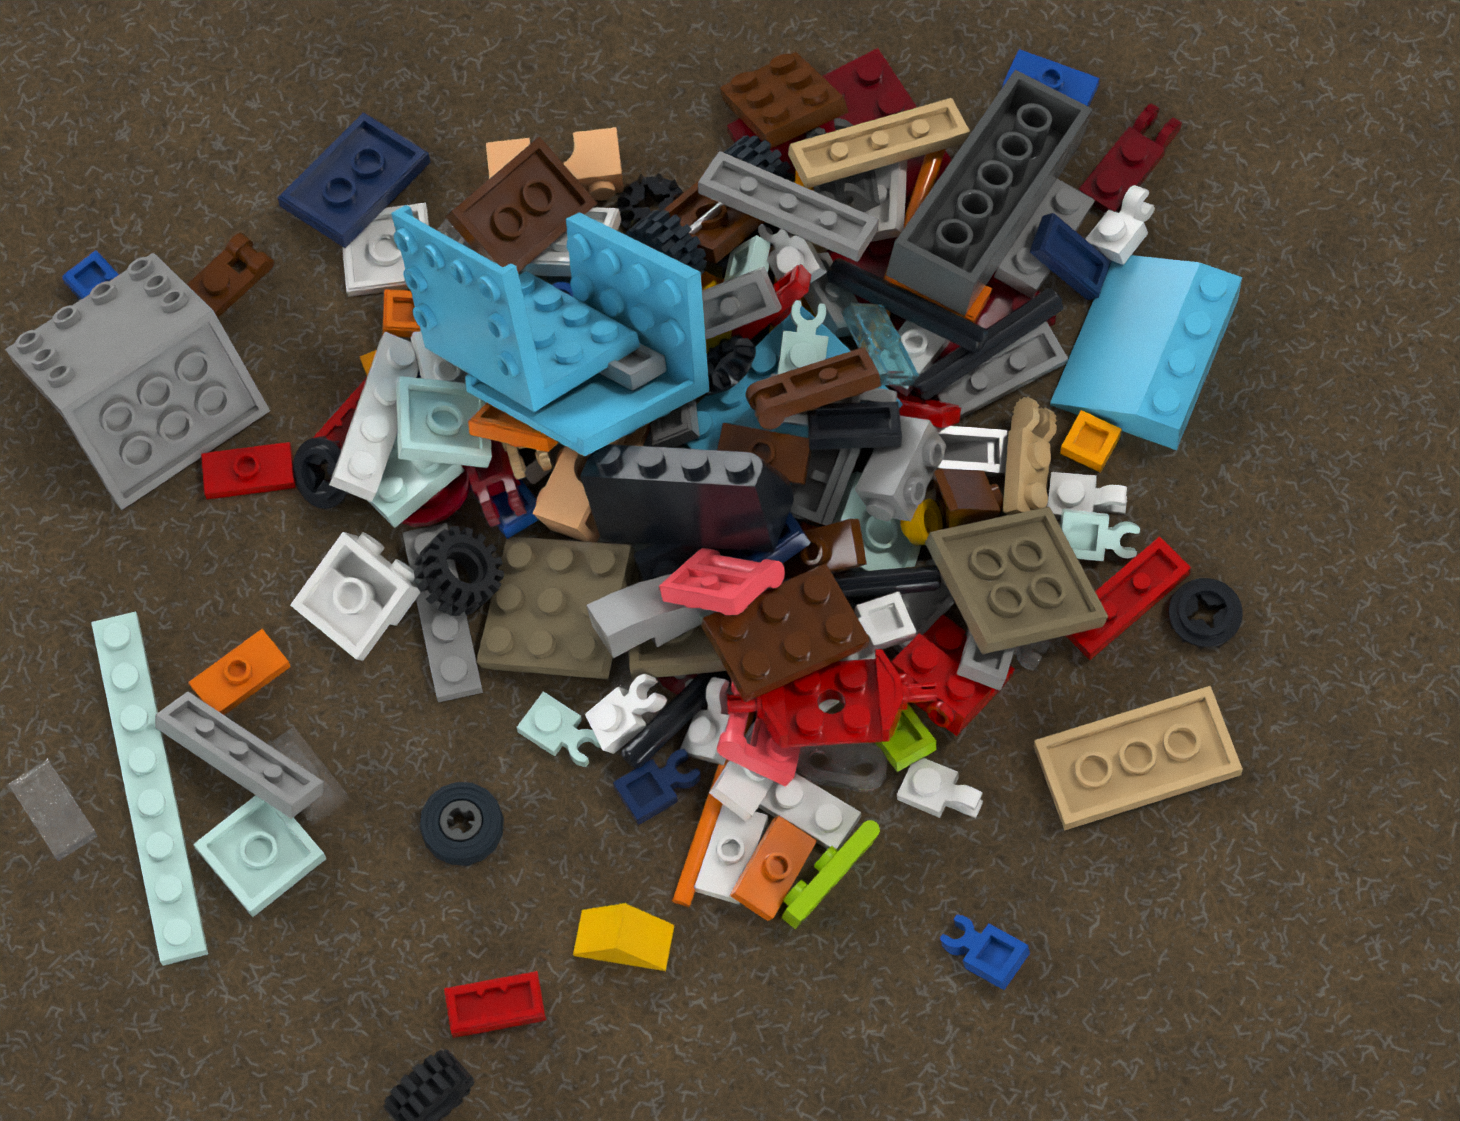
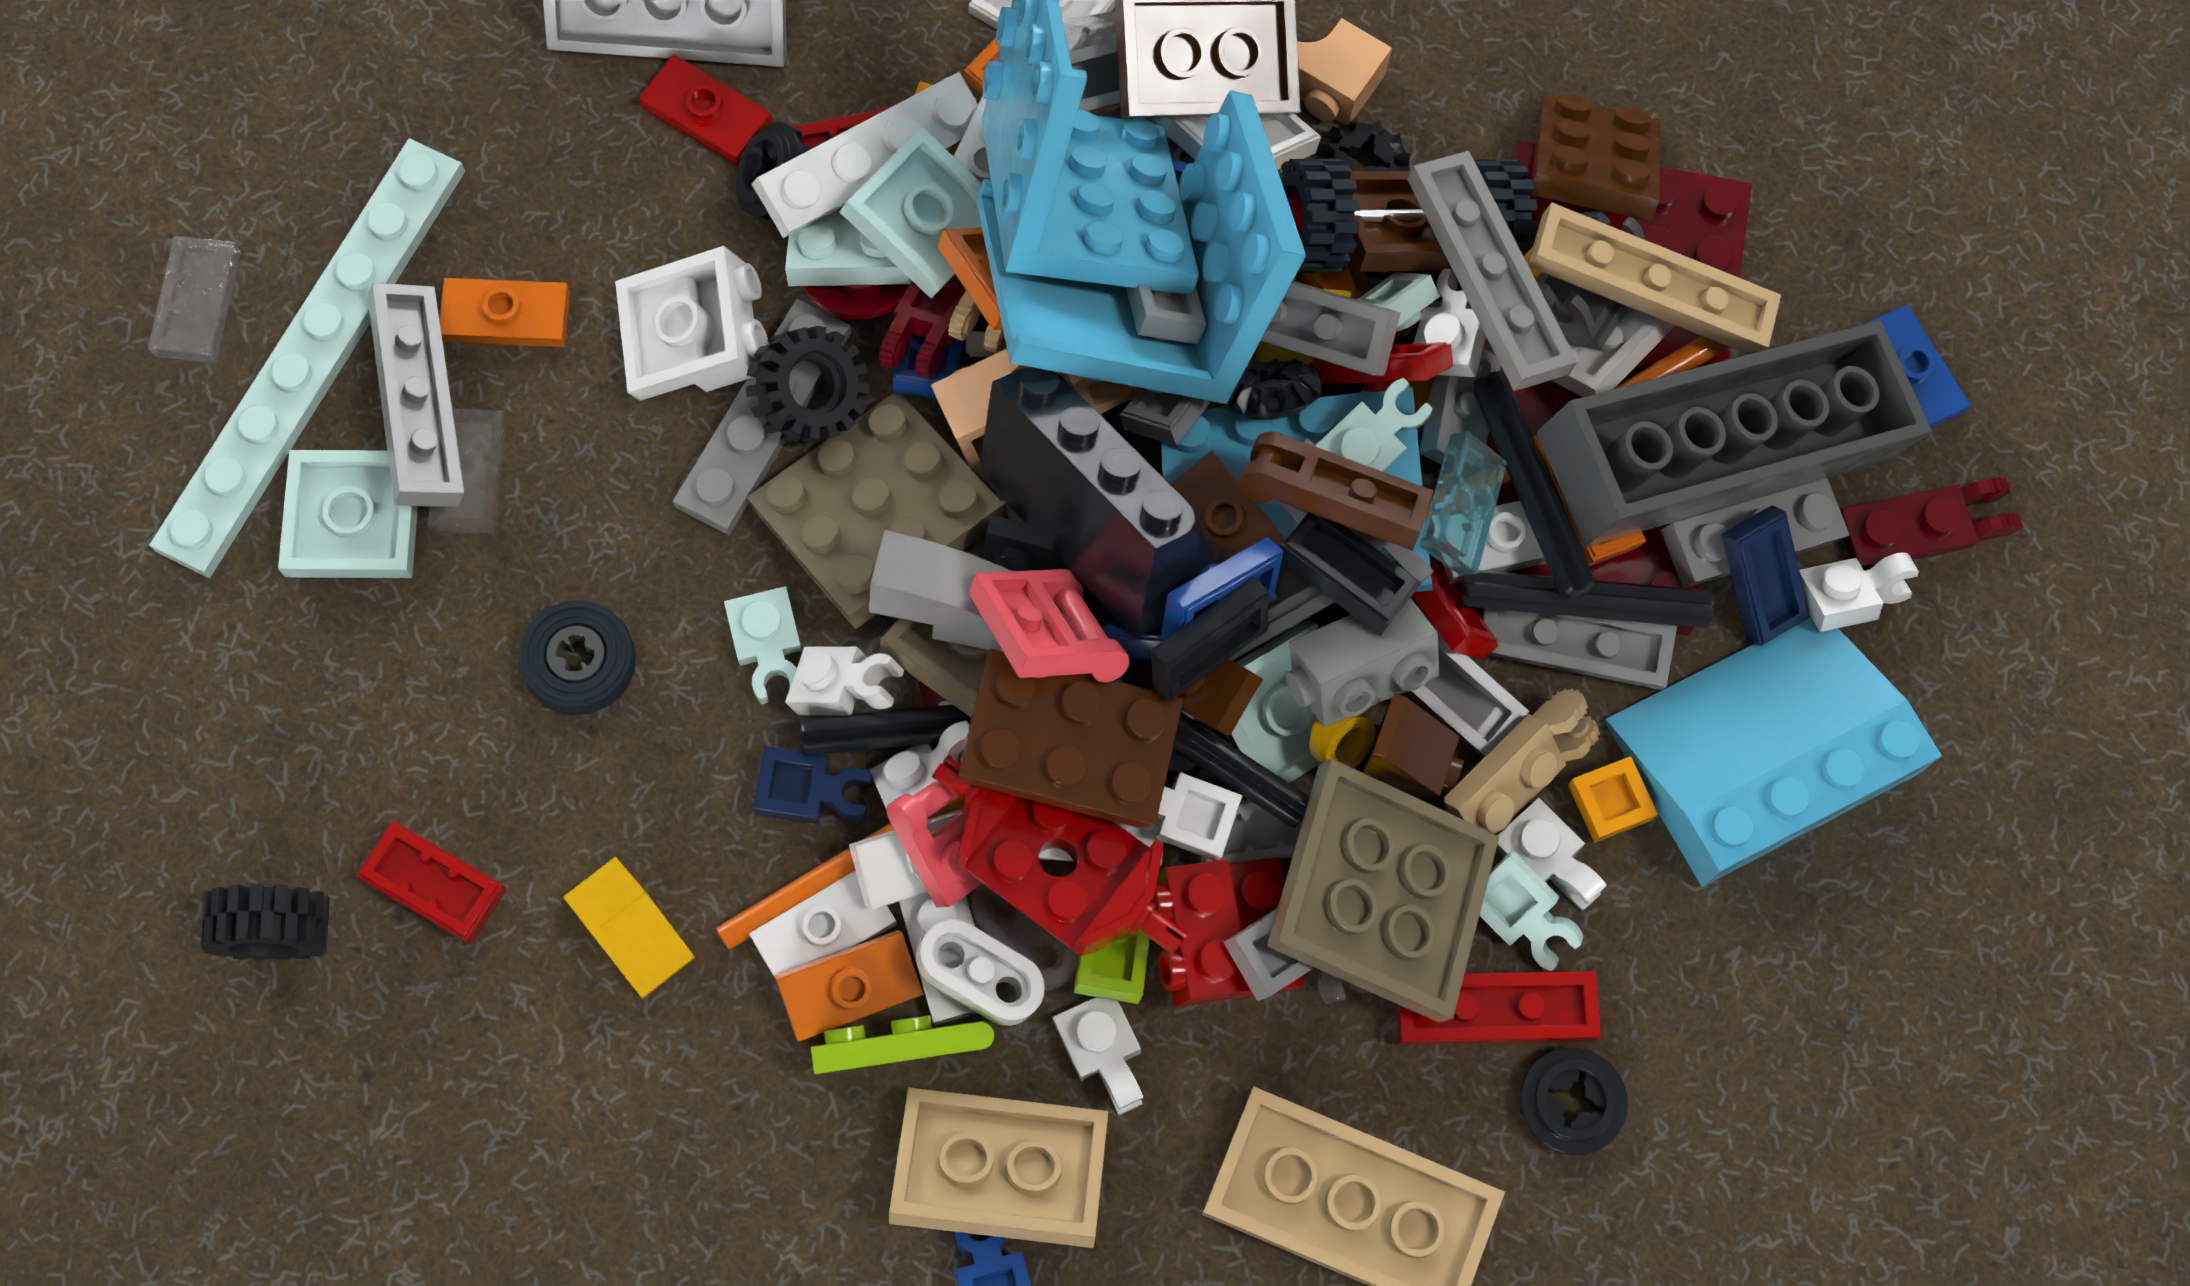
camera: 30 degrees right, 5 degrees up
(800, 490) = (1218, 580): none -> blue plate
(815, 518) = (1210, 639): none -> black tile
(838, 796) = (982, 966): none -> white plate
(939, 890) = (999, 1167): none -> tan plate

